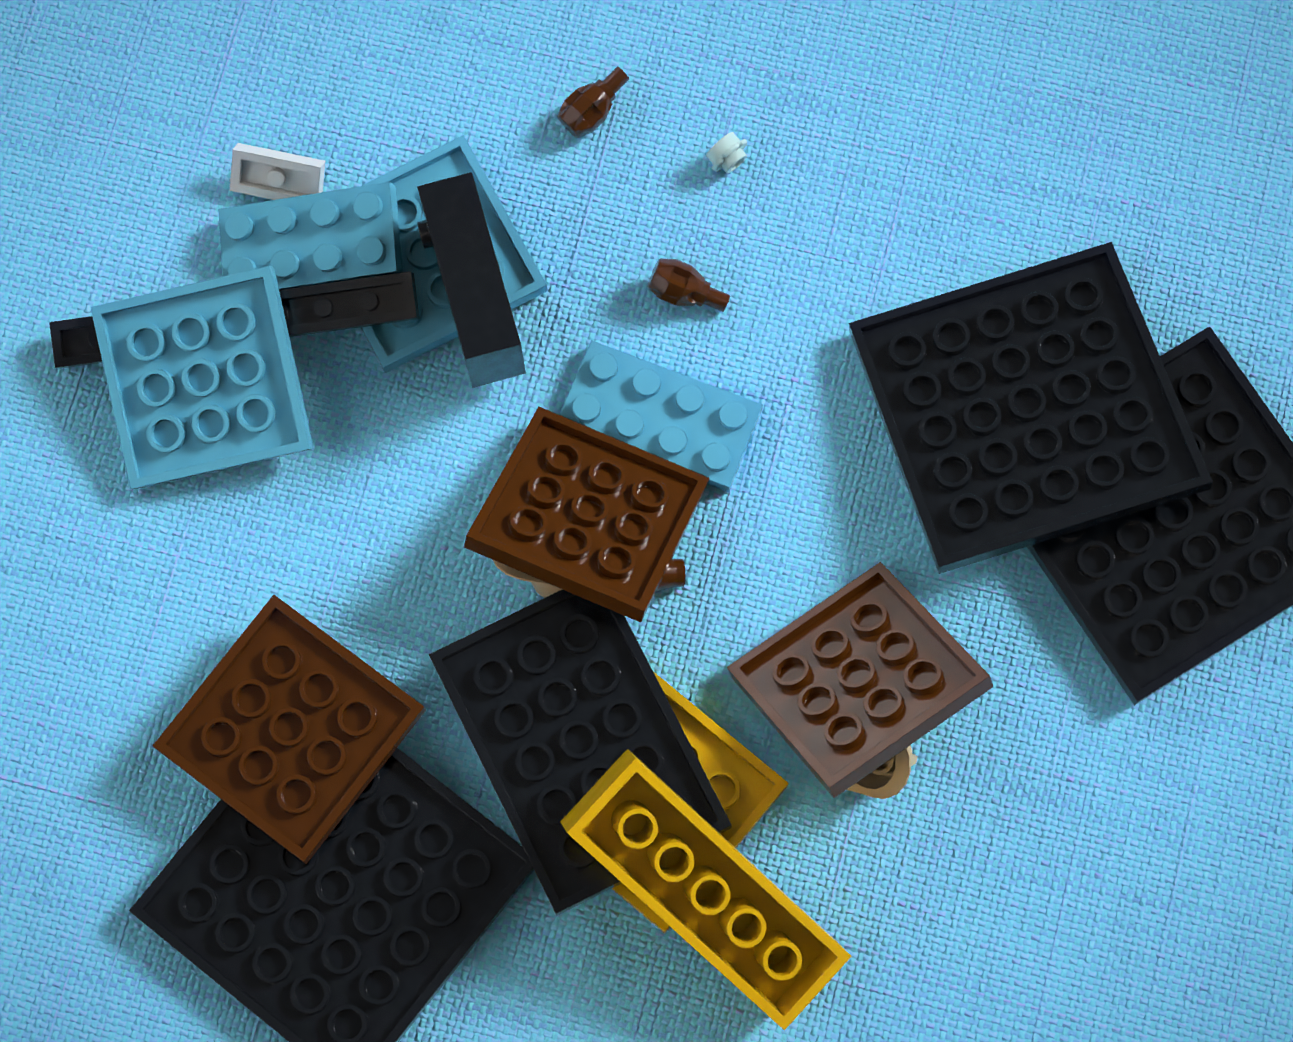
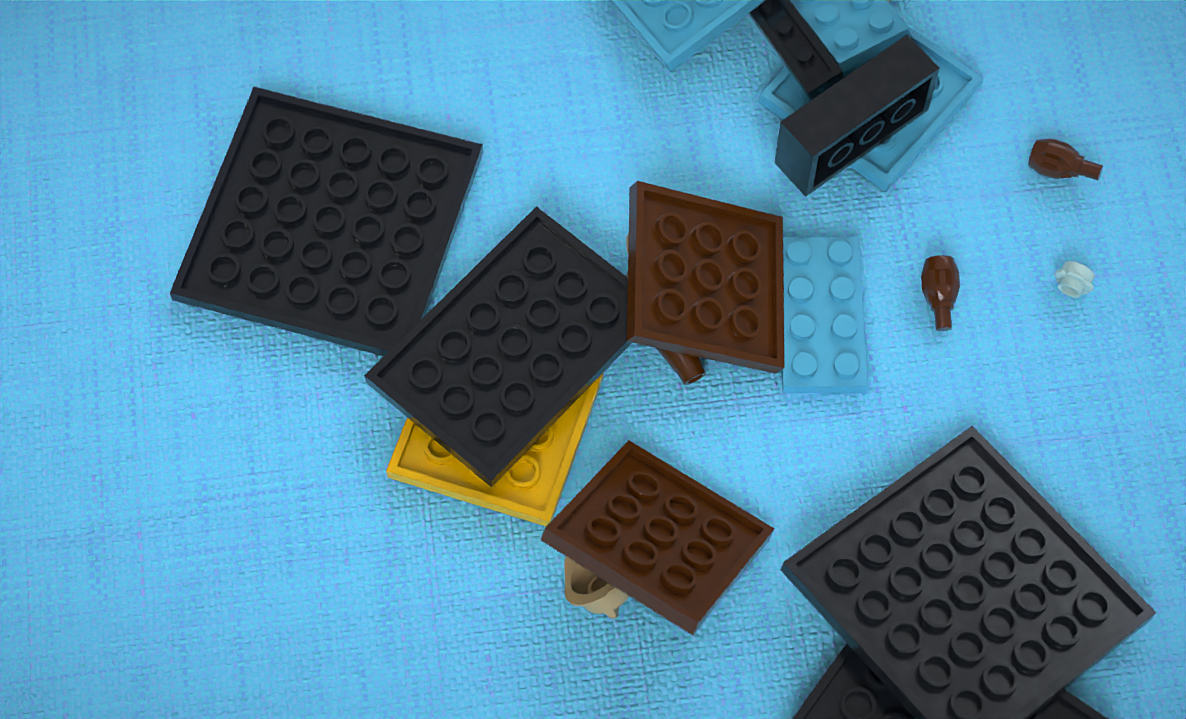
camera: 65 degrees right, 10 degrees down
(289, 728) = (436, 135): reddish brown plate -> none
(705, 889) = (425, 473): yellow brick -> none

